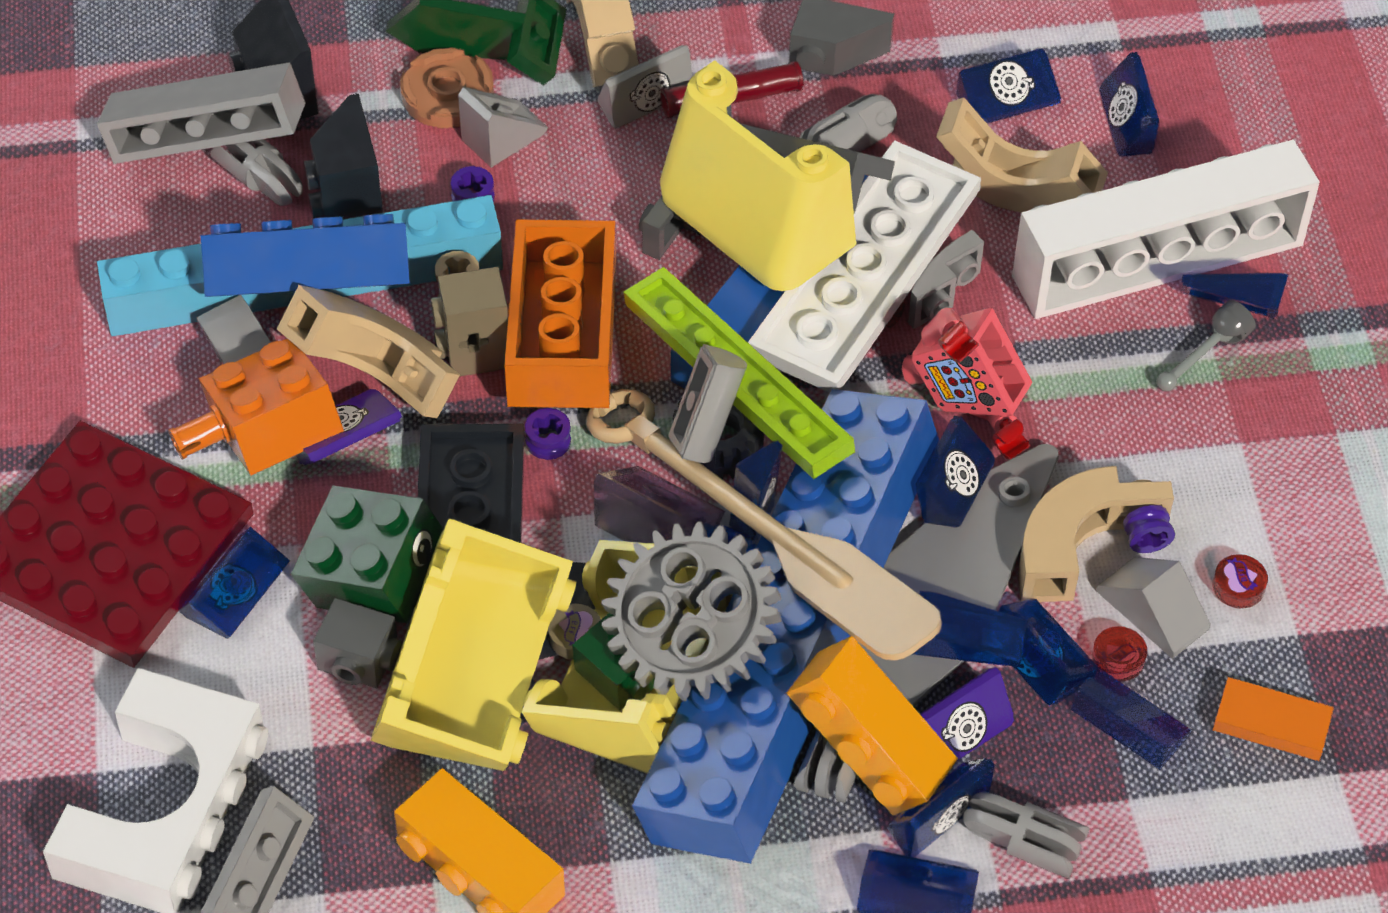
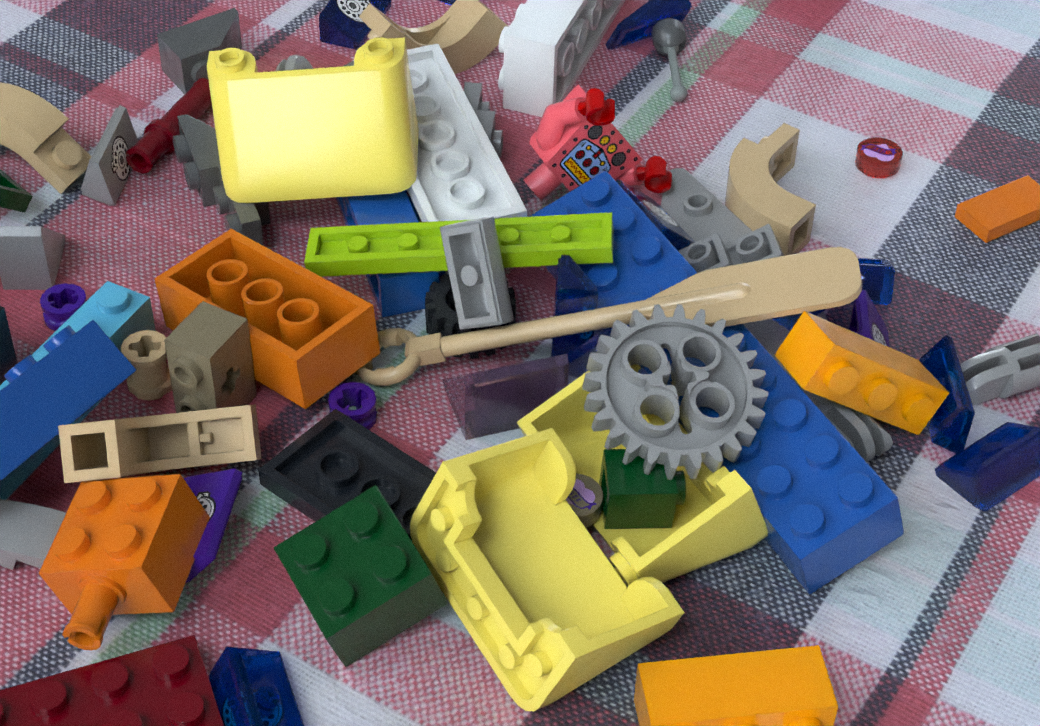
camera: 50 degrees left, 10 degrees down
(356, 644) = (430, 652): dark grey brick -> none
(951, 558) = (751, 247): none -> light grey slope
(1120, 652) = (882, 241): clear red tile -> none
(1129, 718) = (946, 271): clear blue slope -> none
(1149, 529) = (798, 165): dark purple bush -> none
(1158, 602) = (857, 198): light grey slope -> none

